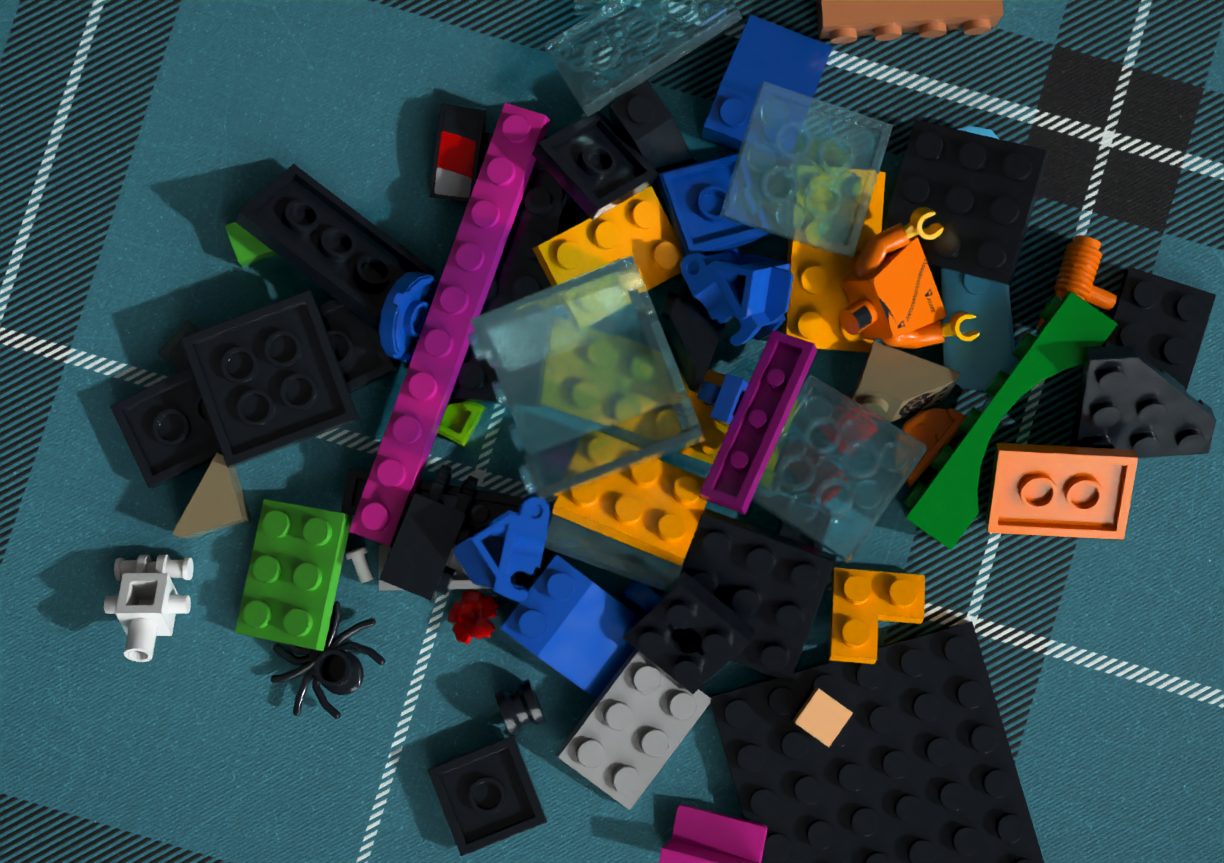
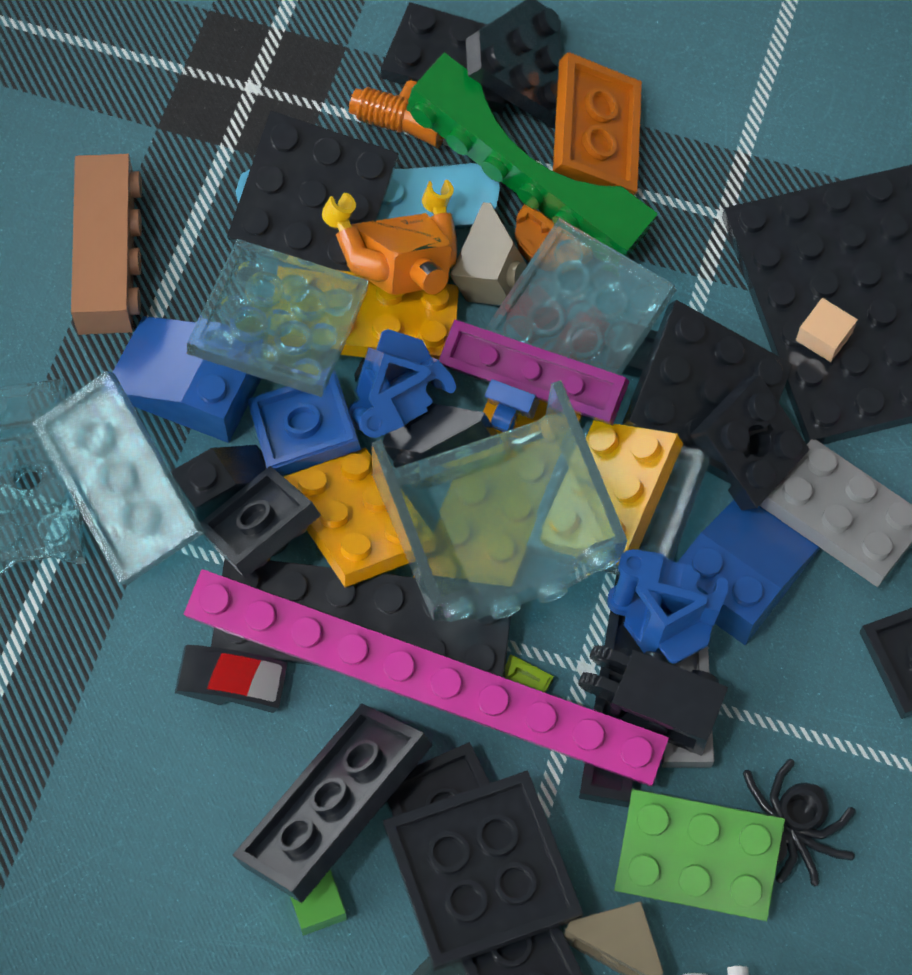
camera: 90 degrees left, 20 degrees down
(360, 563) = (684, 788): white piece -> none
(405, 314) = (414, 715): blue tile -> none
(472, 616) = (738, 668): red plant -> none
(520, 707) = (831, 620): black wheel -> none
(640, 597) = (713, 498): blue tile -> none
(861, 601) = (705, 289): light orange plate -> none

